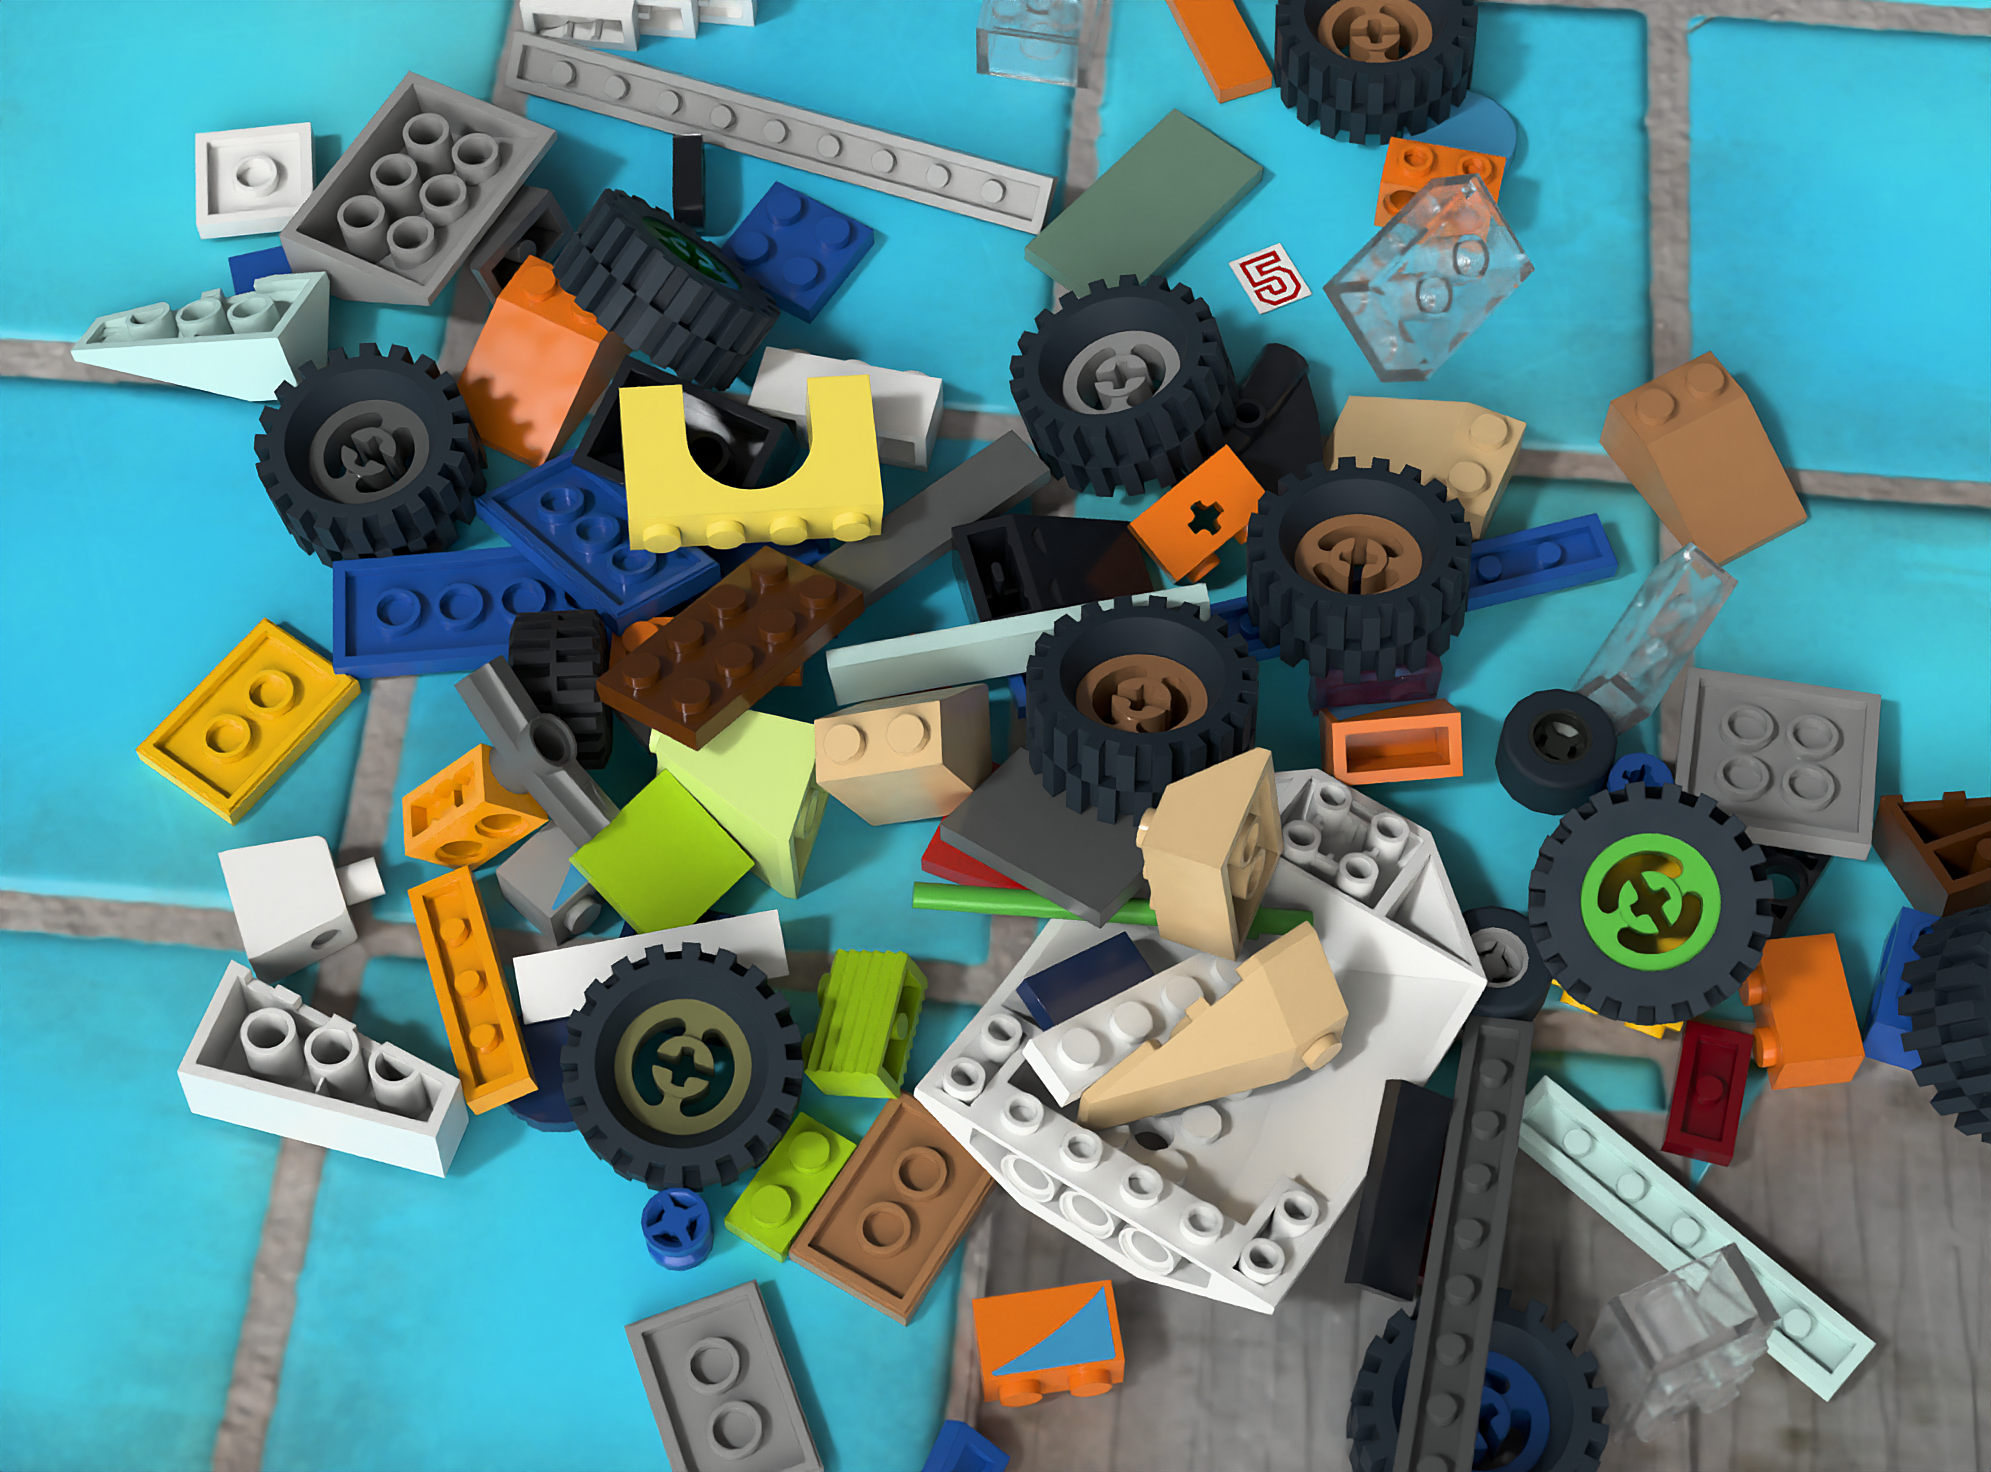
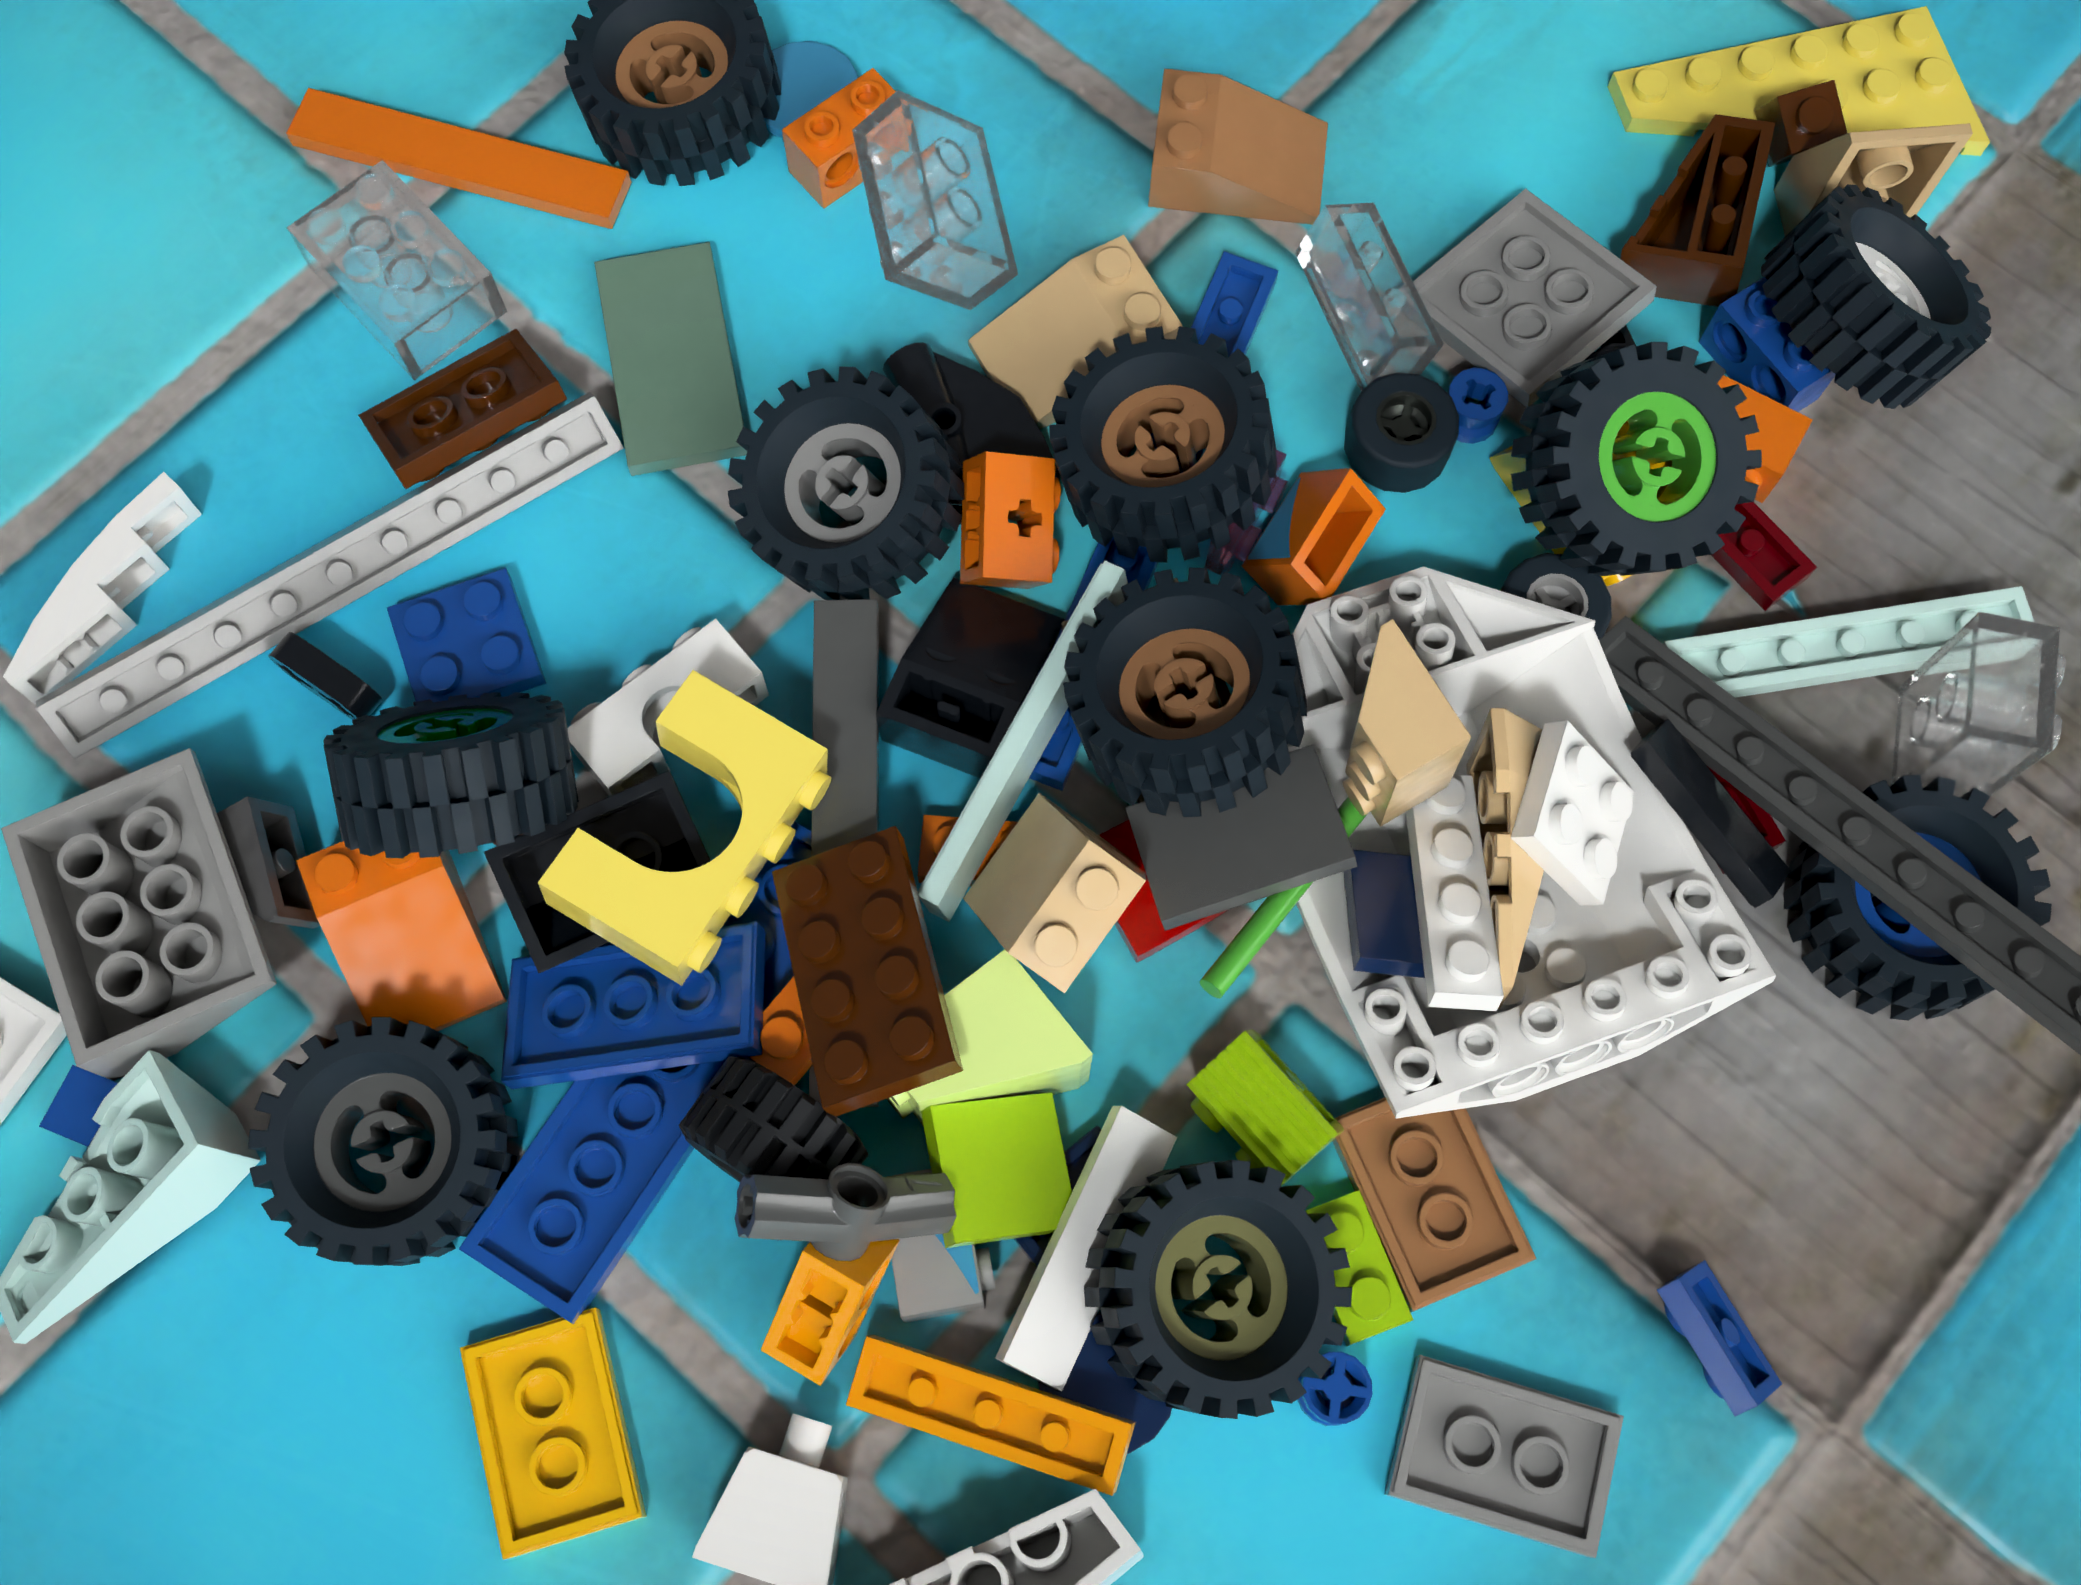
camera: 55 degrees left, 10 degrees up
(970, 110) = (462, 408): none -> reddish brown plate
(1048, 1343) = (1637, 1163): orange brick -> none
(1270, 278) = (808, 315): white sticker -> none
(1285, 1061) = (1573, 814): none -> white plate

